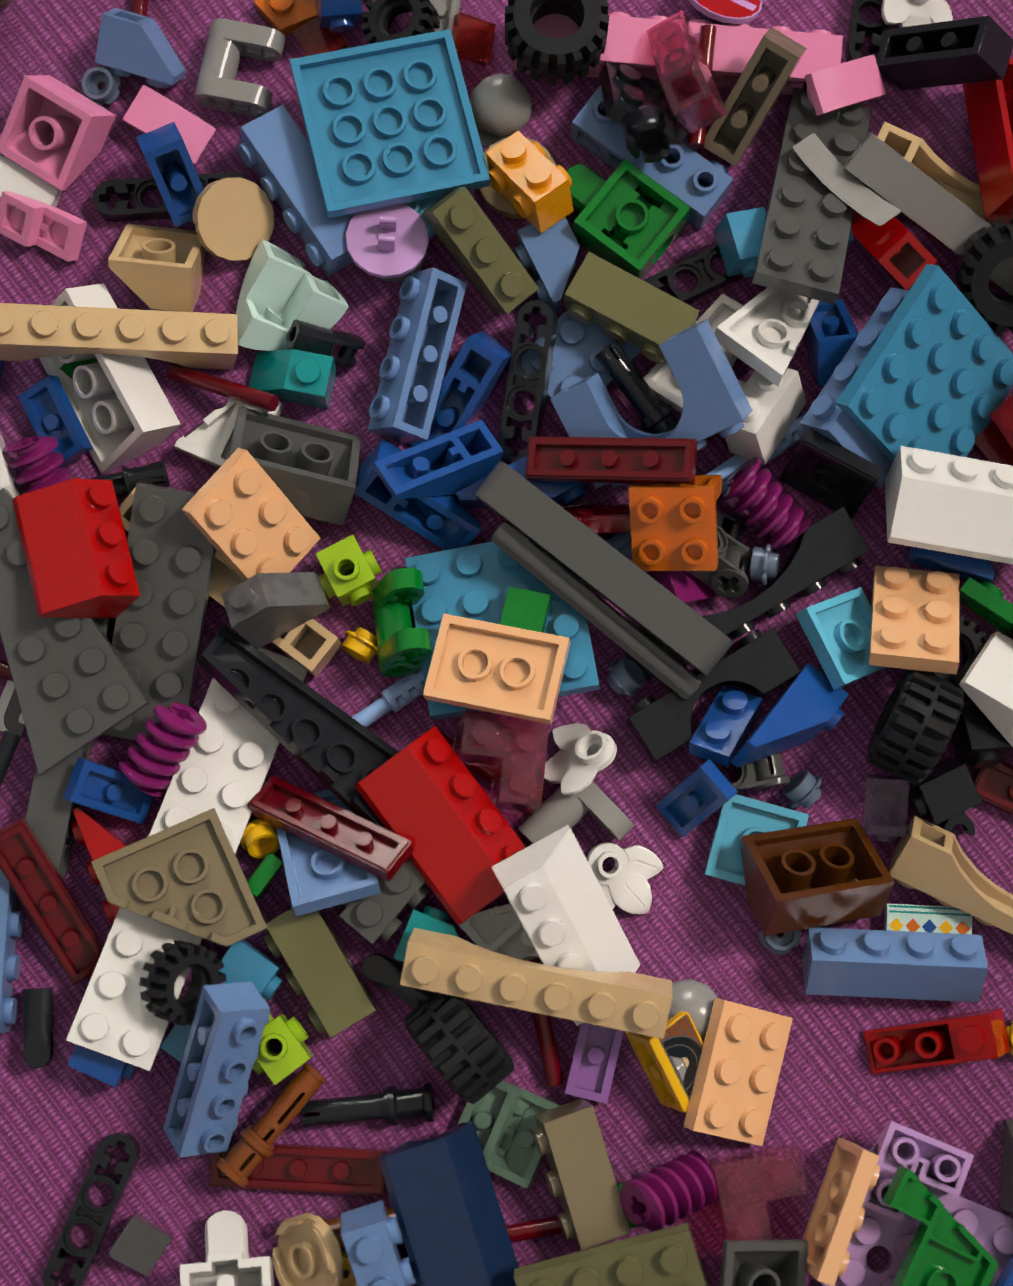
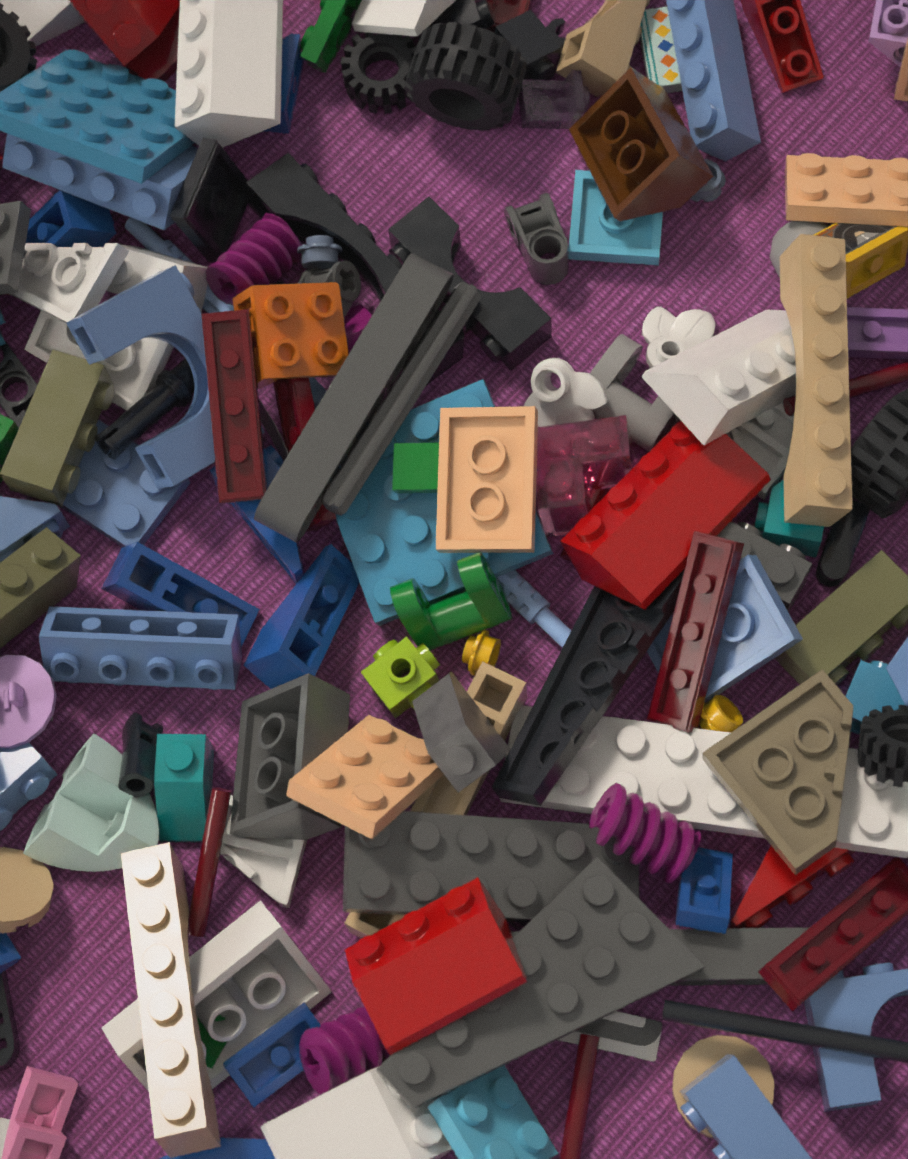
camera: 90 degrees left, 10 degrees down
(126, 480) = (331, 943): black axle -> none
(160, 265) = (68, 964): tan slope -> none
(265, 875) = (754, 698): green tile -> none
(441, 464) = (263, 587): blue slope -> none
(520, 381) = (154, 519): black beam -> none
(625, 676) = (464, 371): sand blue plate -> none
(696, 798) = (583, 273): blue plate -> none
(725, 726) = (500, 260): blue plate -> none
(795, 717) = (476, 195): blue slope -> none
(803, 789) = (550, 179): sand blue plate -> none
(841, 636) = (385, 161): medium azure plate -> none
(915, 620) = (355, 95): light nougat plate -> none

